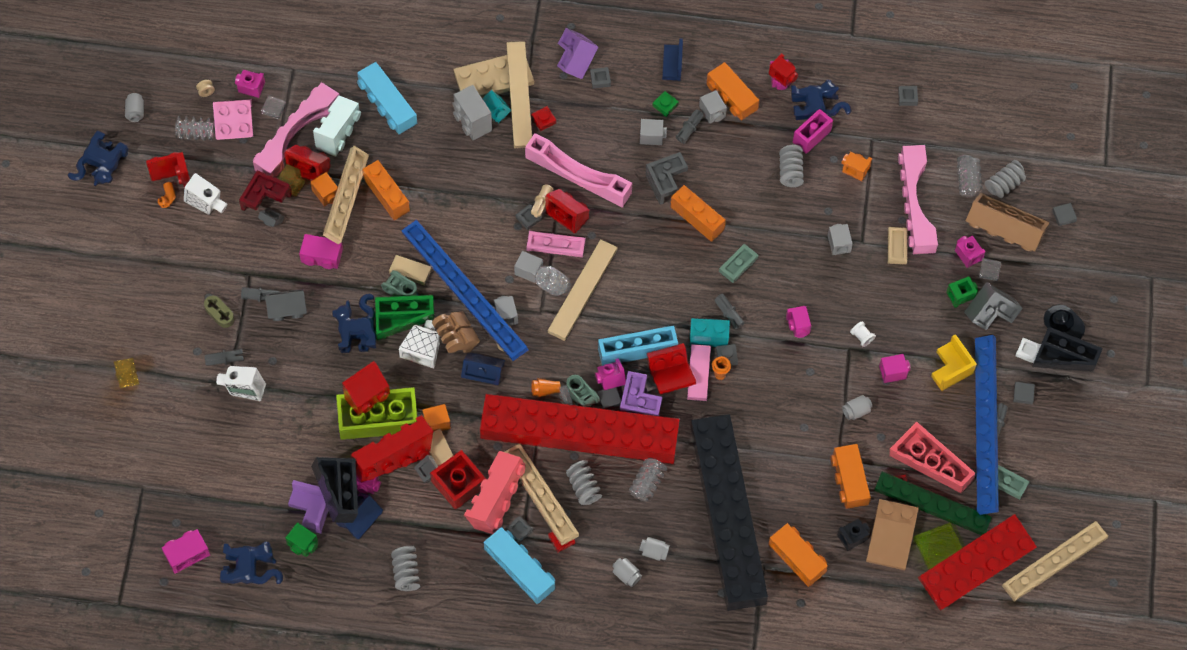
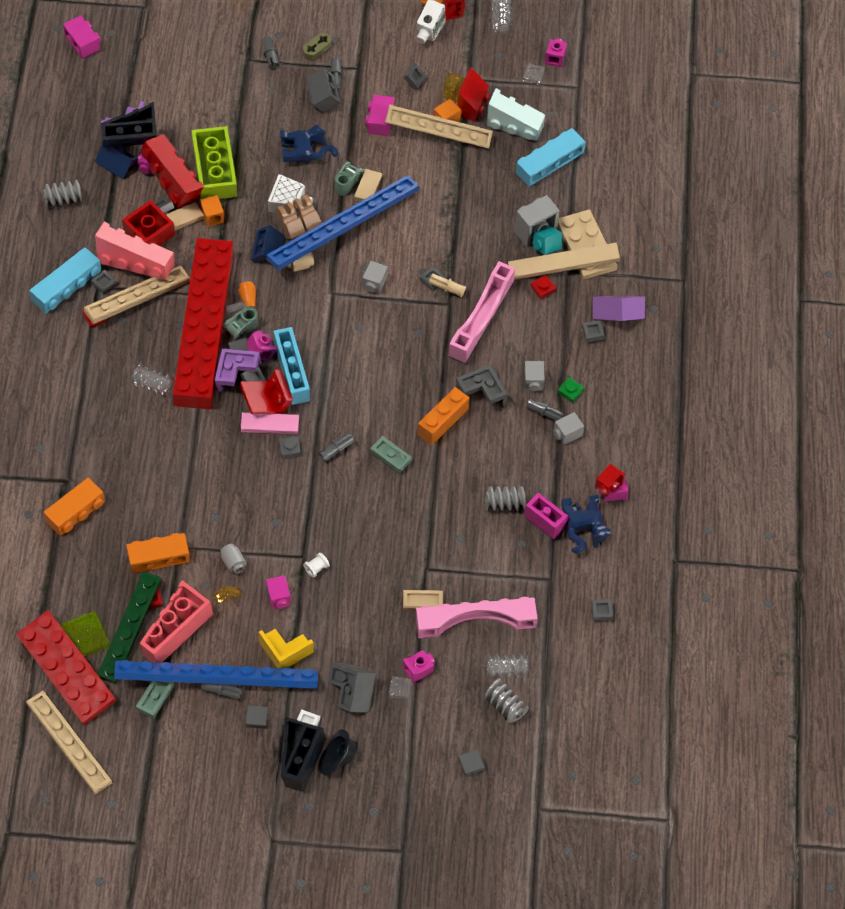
camera: 85 degrees right, 5 degrees down
(205, 88) = (547, 19): tan bush -> none
(233, 119) = (516, 40): bright pink bracket -> none
(243, 382) = (242, 57): white torso -> none
(246, 560) = (68, 79): dark blue animal -> none
(261, 186) = (441, 64): dark red panel -> none
(301, 540) = (90, 117): green brick -> none
(316, 106) = (506, 83): bright pink arch -> none
(366, 388) = (226, 139): red slope -> none
(386, 190) = (448, 160): orange brick -> none
(402, 313) = (317, 176): green wedge -> none
(506, 309) = (326, 260): light grey brick -> none
(552, 281) = (356, 292): clear piece -> none
(555, 244) = (404, 301): bright pink tile -> none
(566, 210) = (437, 302): red slope -> none
(581, 483) = (148, 326): light grey piece -> none
(582, 290) = (355, 324): tan tile -> none
(626, 572) = (58, 365): light grey brick -> none
(654, 548) = (81, 387): light grey brick -> none
(672, 61) = (620, 395): dark blue panel -> none
(709, 332) = (310, 428): teal brick -> none
(721, 367) = (270, 435): orange cone -> none
(728, 512) = (118, 446): black brick -> none
(732, 91) = (588, 446): orange brick -> none
(799, 321) = (327, 507): dark pink brick -> none
(840, 239) = (424, 543): light grey brick -> none
(851, 539) = (96, 555): black brick -> none
(856, 165) = (511, 559): orange brick -> none
(892, 534) = (96, 589): medium nougat slope -> none
(895, 415) = (226, 592): none -> clear yellow tile
(964, 285) = (369, 651): green brick -> none
(1007, 222) = (456, 703): medium nougat slope -> none

